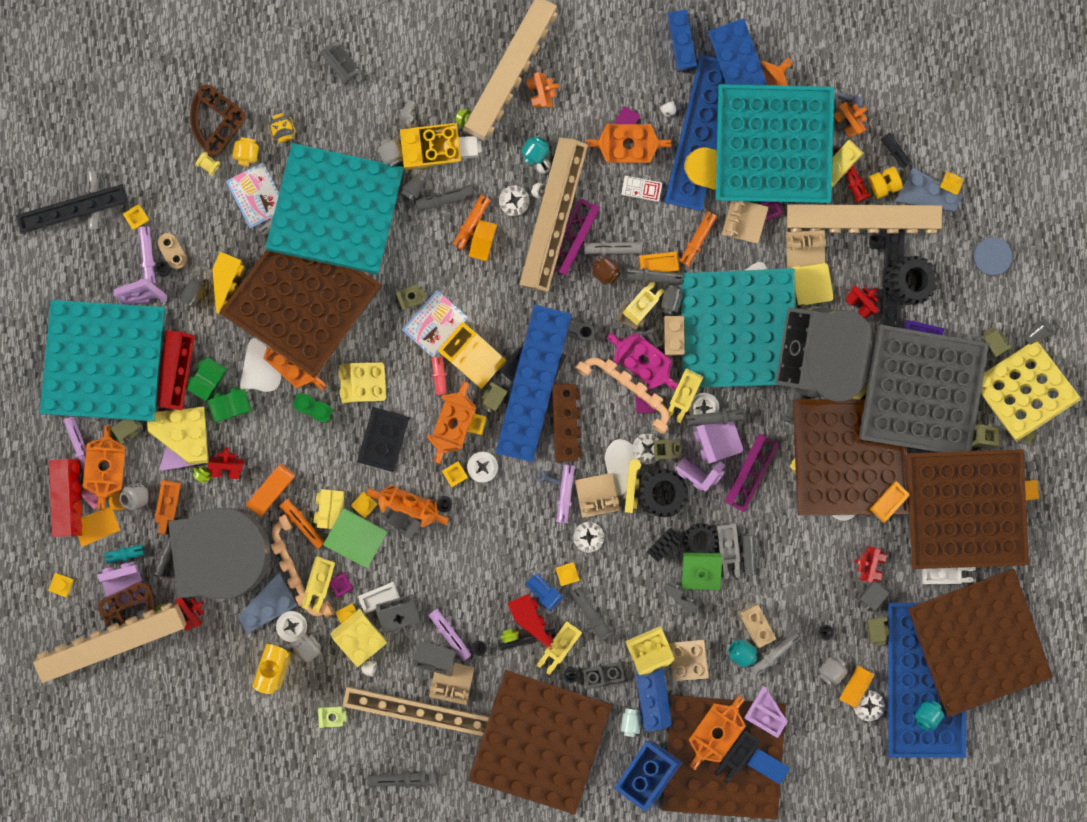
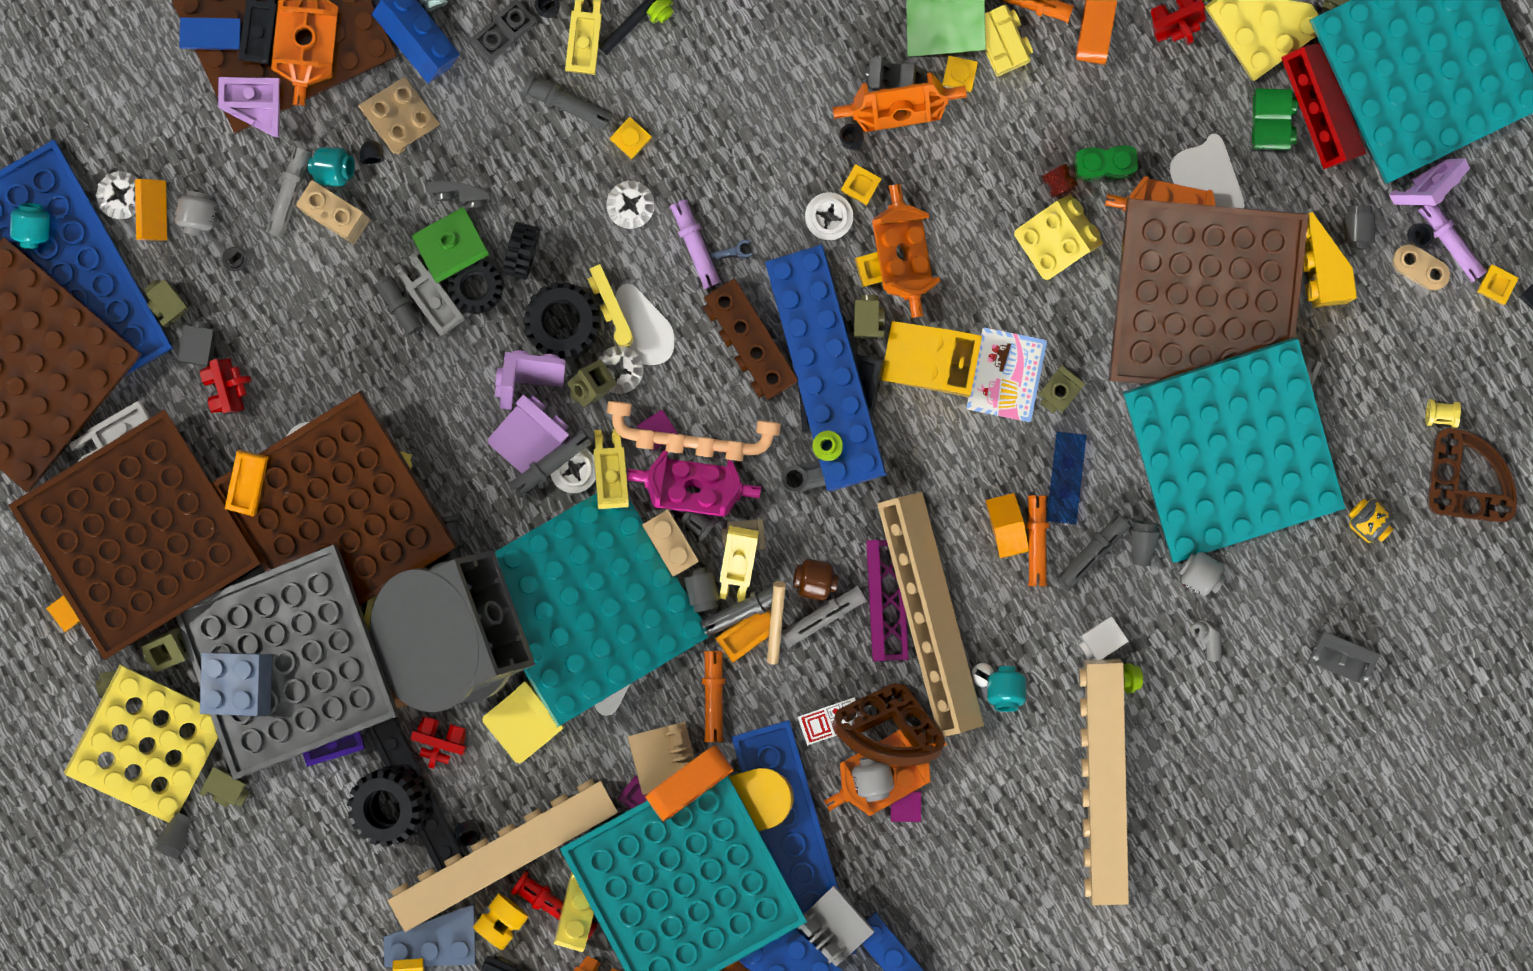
camera: 155 degrees right, 0 degrees up
(229, 405) = (1220, 103): green brick -> none
(245, 151) = (1401, 459): yellow head -> none
(254, 194) = (1354, 409): sticker -> none
(343, 413) = (1059, 180): none -> clear red wheel
(383, 439) = (985, 176): black tile -> none
(430, 146) = (1154, 611): yellow slope -> none
(435, 247) = (1066, 478): none -> clear blue tile
(439, 375) = (959, 305): coral axle -> none
(505, 197) = (981, 606): white gear -> none
(527, 618) = (652, 47): red slope -> none
(536, 187) = (975, 636): white hinge -> none
(545, 88) = (1042, 781): orange hips -> none
(547, 595) = (641, 93): blue piece -> none
(551, 337) = (834, 452): none -> lime plate
(597, 495) = (651, 267): tan hinge -> none
(602, 171) = (898, 711): none -> reddish brown beam
(637, 142) = (872, 779): none -> light grey head
(641, 258) = (776, 622): none -> tan bar
(650, 651) = (457, 96): light yellow bracket -> none
(668, 109) = (857, 852): white hinge -> none
(704, 73) = (835, 926): none -> light grey hinge
(716, 648) = (371, 152): none -> black hinge
(739, 196) = (689, 783): none -> orange beam
(747, 465) = (469, 422): magenta fence -> none
(805, 248) = (559, 767): tan hinge -> none
(958, 393) = (235, 683): none -> sand blue brick
(992, 256) = (296, 905): sand blue tile -> none

